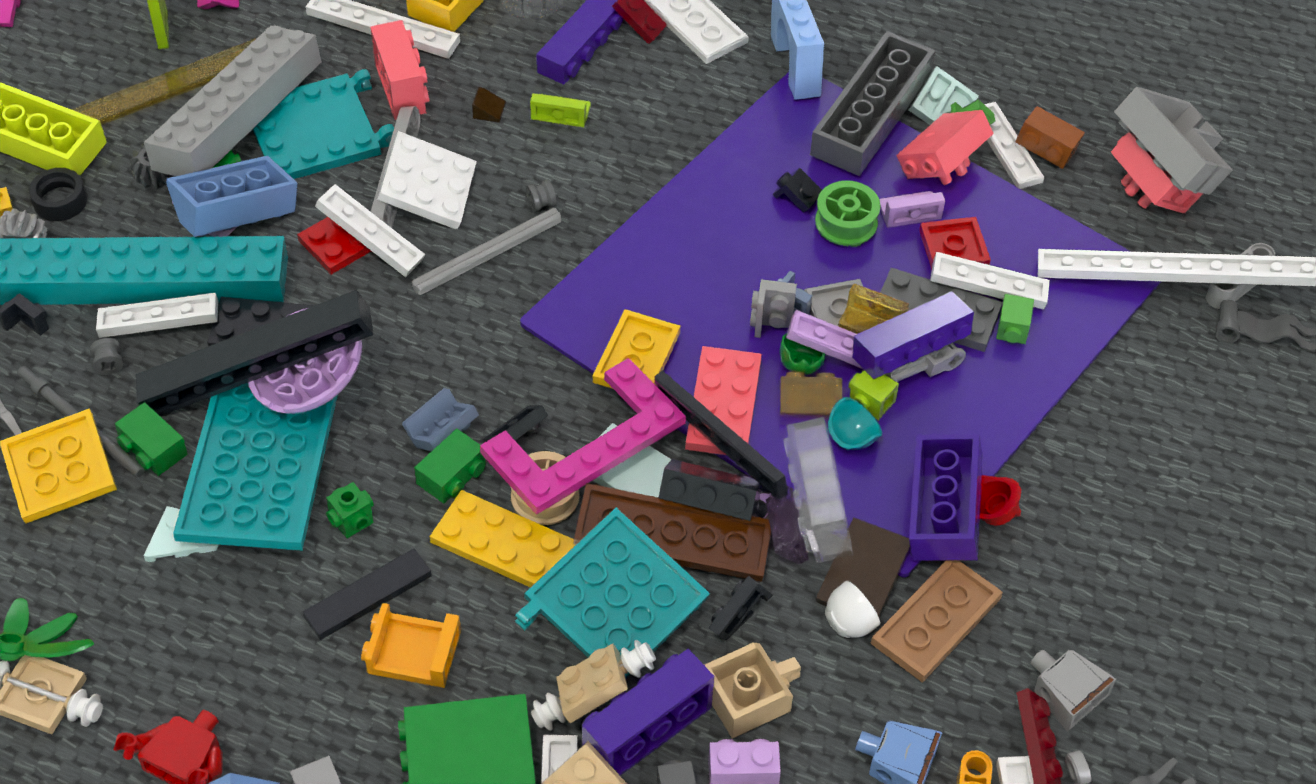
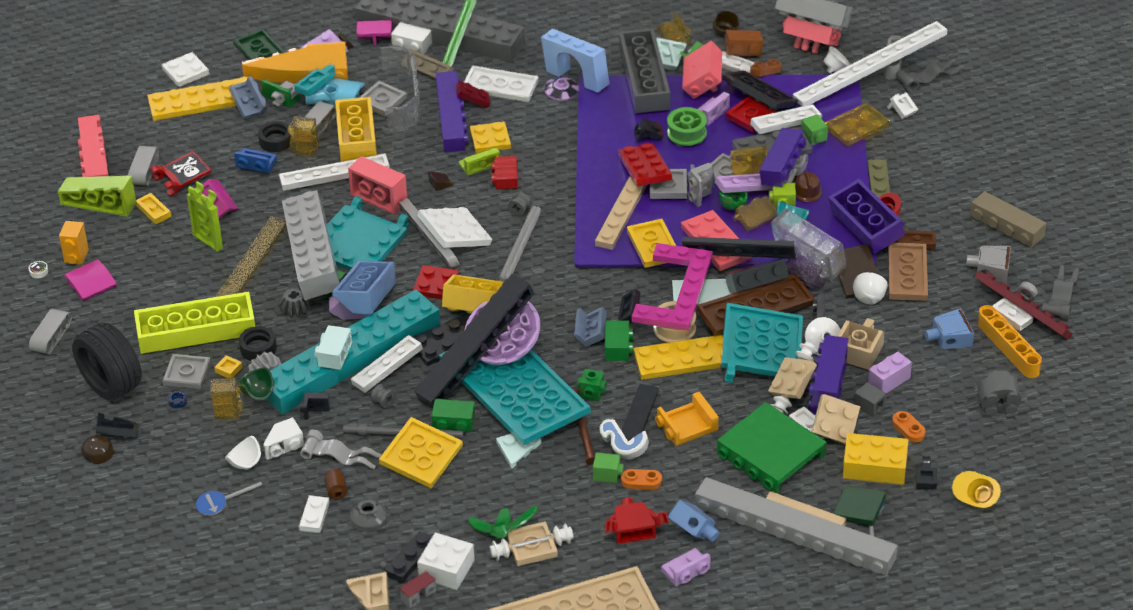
camera: 35 degrees left, 10 degrees down
(93, 255) = (333, 347): none -> light aqua brick
(240, 646) = (607, 467): none -> bright green brick
(242, 617) = (586, 438): none -> copper bar
(268, 692) = (641, 479): none -> orange plate
(290, 620) = (626, 449): none -> white animal
(339, 270) = (467, 292): none -> yellow brick
(370, 230) = (455, 264): white plate -> none
(570, 142) = (505, 172): none -> red brick
(608, 84) = (490, 136): none -> yellow plate
(651, 282) = (619, 215): none -> tan plate
(711, 628) = (817, 328): none -> white dish
(737, 235) = (644, 164): none -> red plate
(740, 276) = (671, 189): none -> light grey plate
(762, 68) = (561, 88): none -> dish
(924, 398) = (807, 187): none -> reddish brown piece
(979, 72) = (675, 30): none -> clear yellow bracket
(997, 217) = (759, 90): none -> black plate
(1002, 575) = (920, 237): none -> reddish brown plate
(1039, 449) = (878, 177): none -> olive plate
(1047, 190) = (767, 68): none -> dark orange plate
(1056, 96) = (725, 21): none -> dark brown hair
(1084, 346) = (857, 124): none -> clear yellow plate
(1154, 233) = (835, 60): none -> white piece
(1162, 631) = (1008, 219): none -> dark tan brick
(1183, 355) = (903, 105): none -> white bracket

